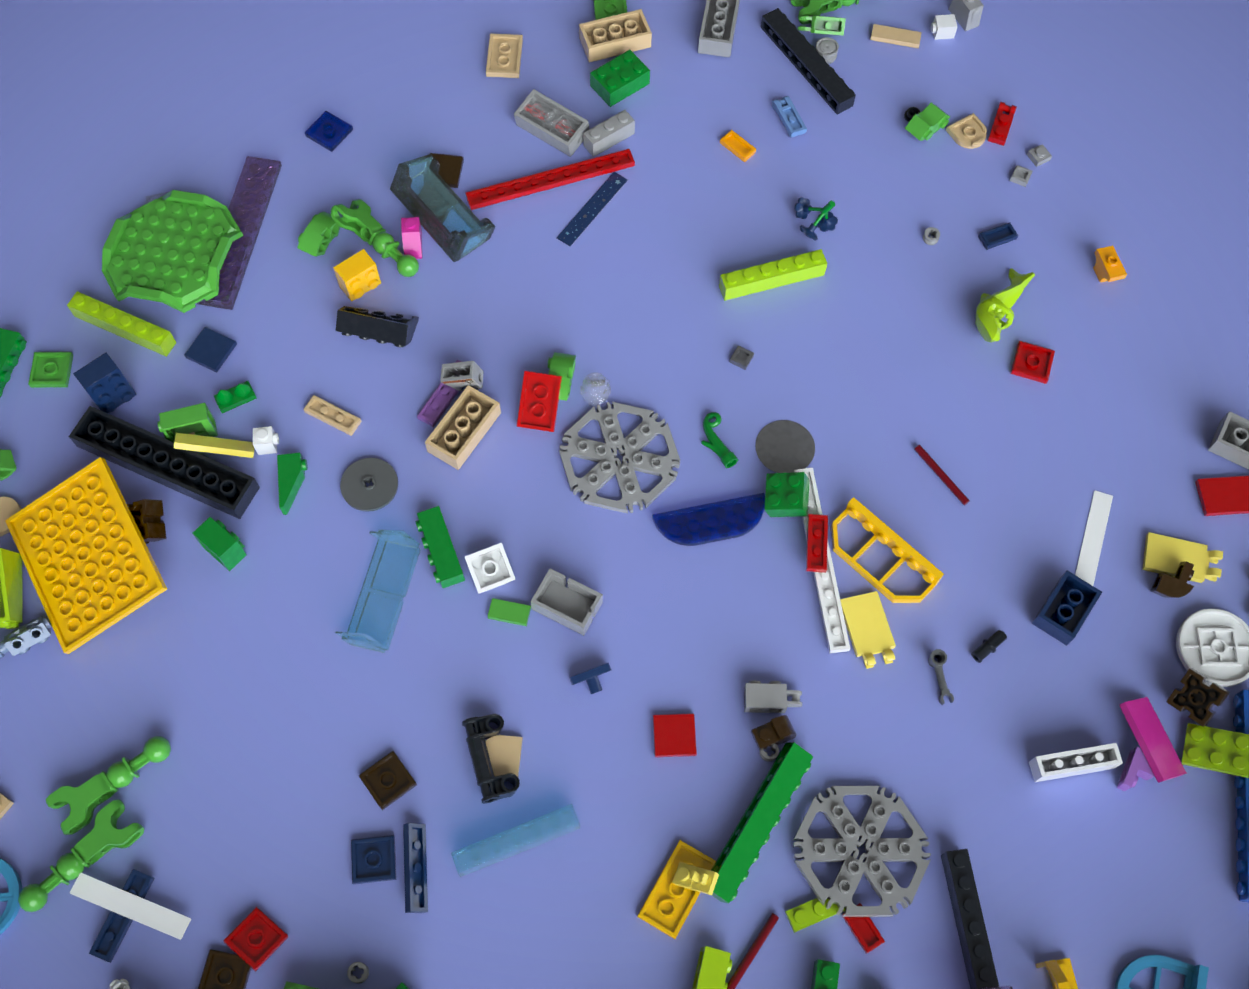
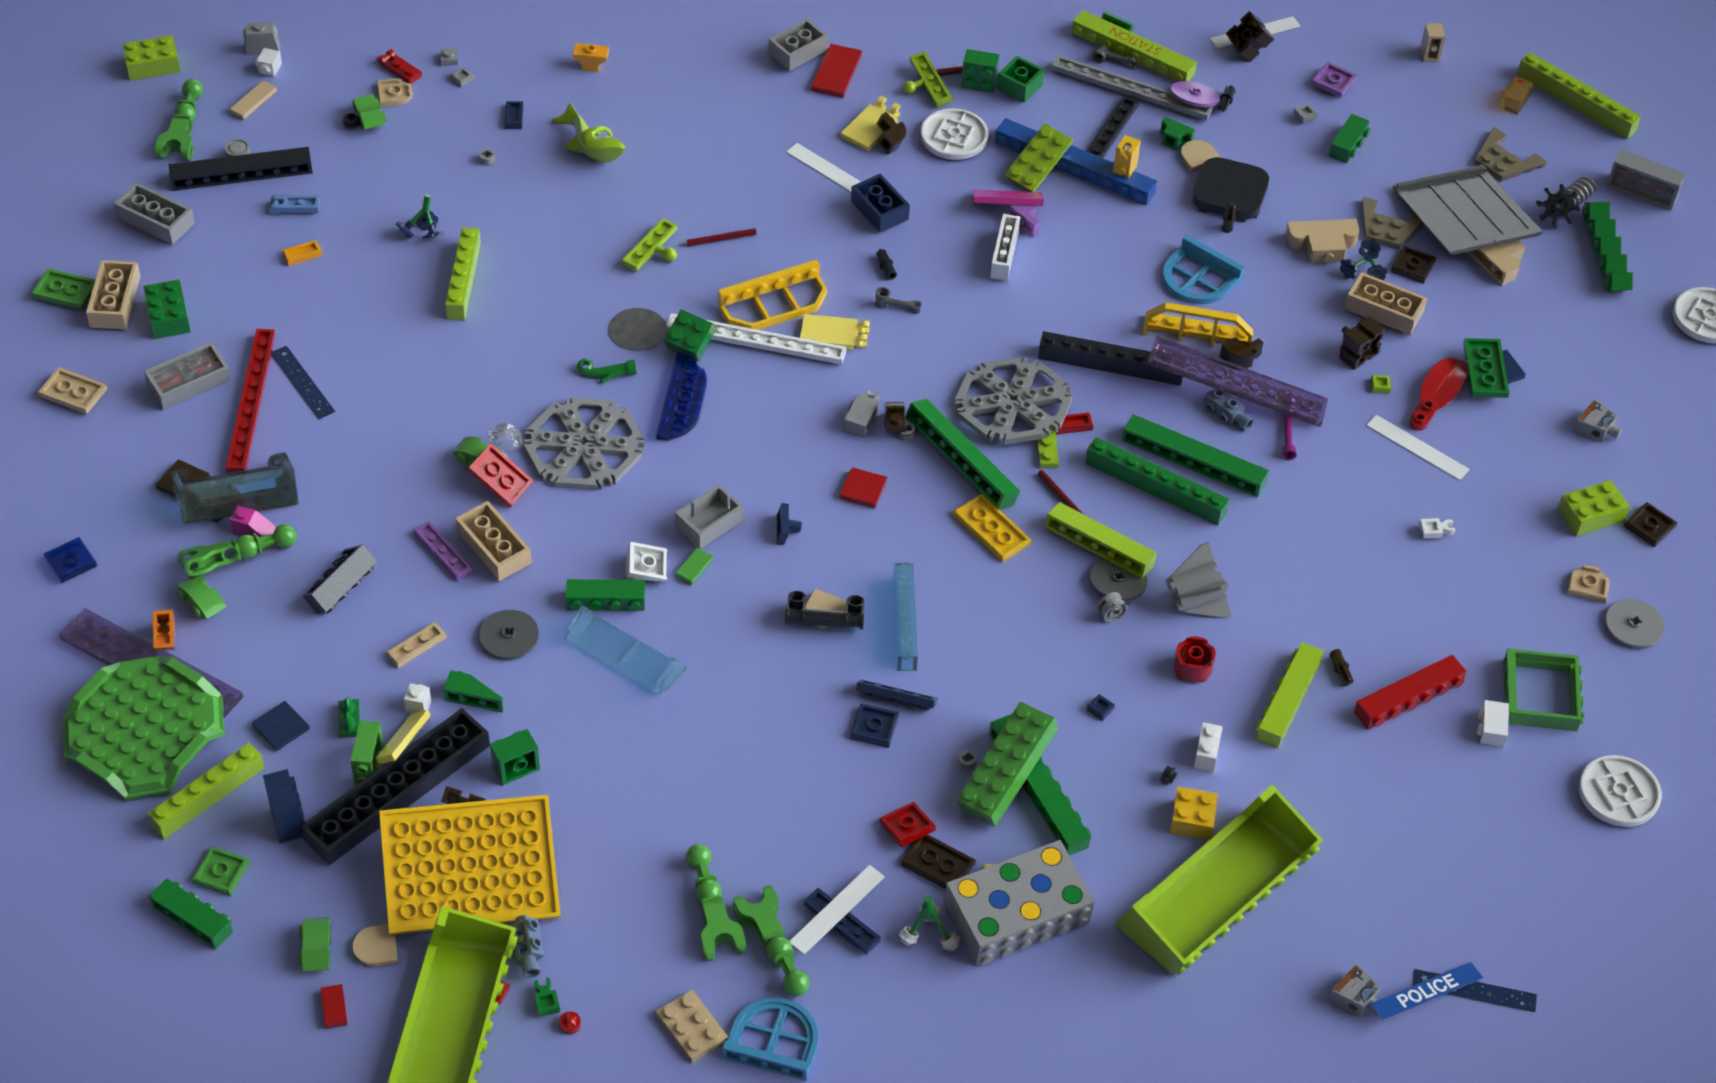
camera: 70 degrees left, 15 degrees down
(272, 222) = (163, 630): none -> orange arch
(357, 275) = (276, 574): yellow brick -> none
(387, 780) = (808, 697): dark brown tile -> none
(461, 375) = (443, 517): light grey torso -> none
(609, 133) = (228, 337): light grey brick -> none
(695, 878) = (991, 503): light yellow plate -> none
(741, 357) = (532, 326): flat silver tile -> none
(817, 543) = (744, 331): red plate -> none
(824, 24) = (210, 139): bright green hinge -> none
(894, 416) = (650, 244): none -> lime plate
(1032, 362) = (650, 141): red tile -> none
(1198, 697) = (989, 155): dark brown brick -> none

